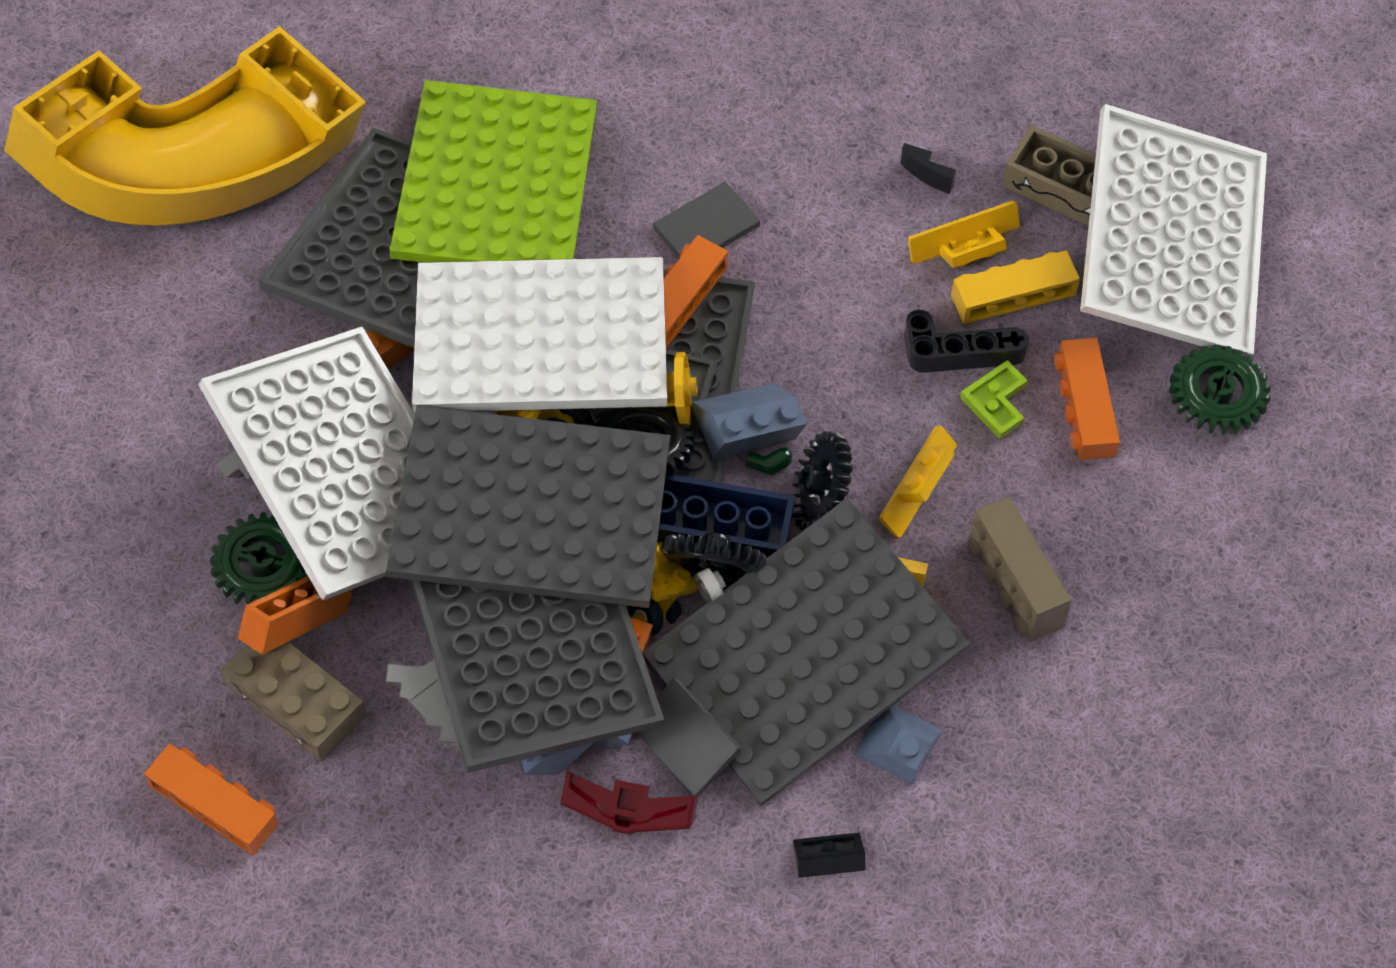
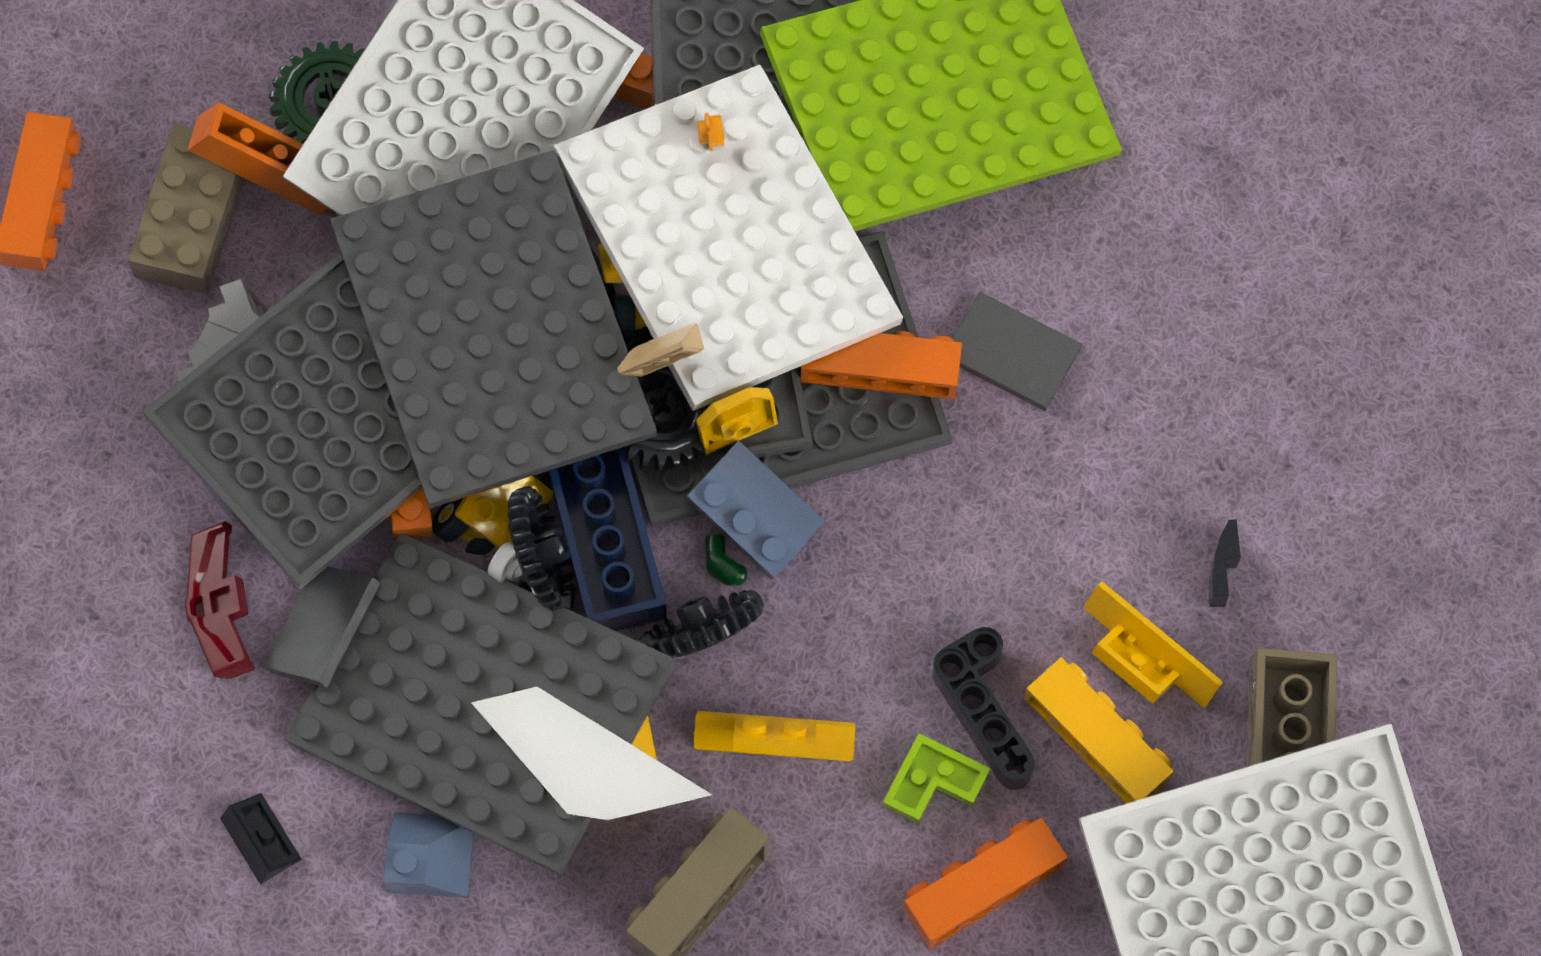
camera: 65 degrees right, 10 degrees up
(461, 302) = (711, 131): none -> light orange plate
(616, 397) = (662, 351): none -> tan slope
(894, 590) = (581, 761): none -> white sticker

